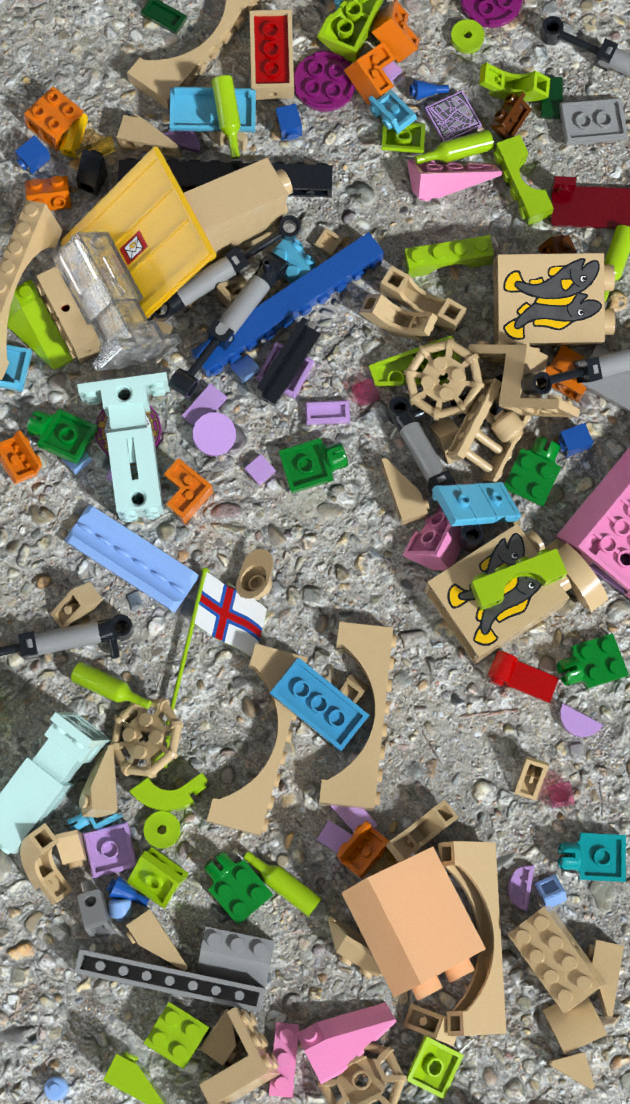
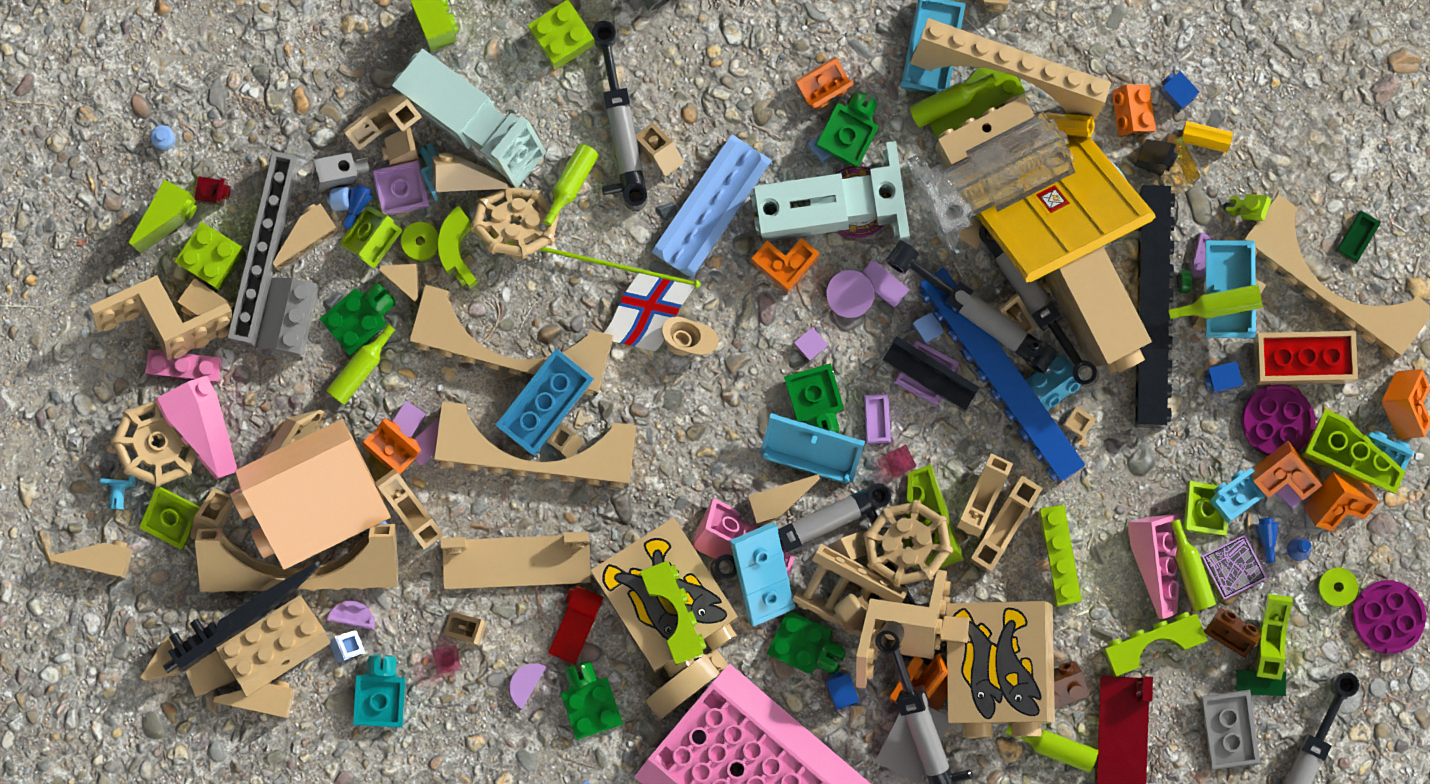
camera: 90 degrees right, 5 degrees up
(37, 346) = (948, 100): none -> lime piece
(52, 117) = (1225, 113): orange bracket -> none
(61, 236) = (1073, 124): none -> yellow axle
(110, 1036) = (212, 191): none -> dark red bracket
(138, 94) = (1251, 208): none -> lime plate
(140, 135) = (1203, 212): tan slope -> none
(199, 843) = (405, 278): none -> tan slope
(203, 152) = (1184, 281): none -> green tile
(358, 466) = (811, 449): none -> medium azure container
(435, 64) = (1299, 549): none -> blue cone
(466, 732) = (516, 561): none -> tan bracket
(523, 332) = (955, 629): none -> tan slope
(552, 1018) = (209, 638): none -> black piece
(560, 356) = (933, 675): none -> orange tile

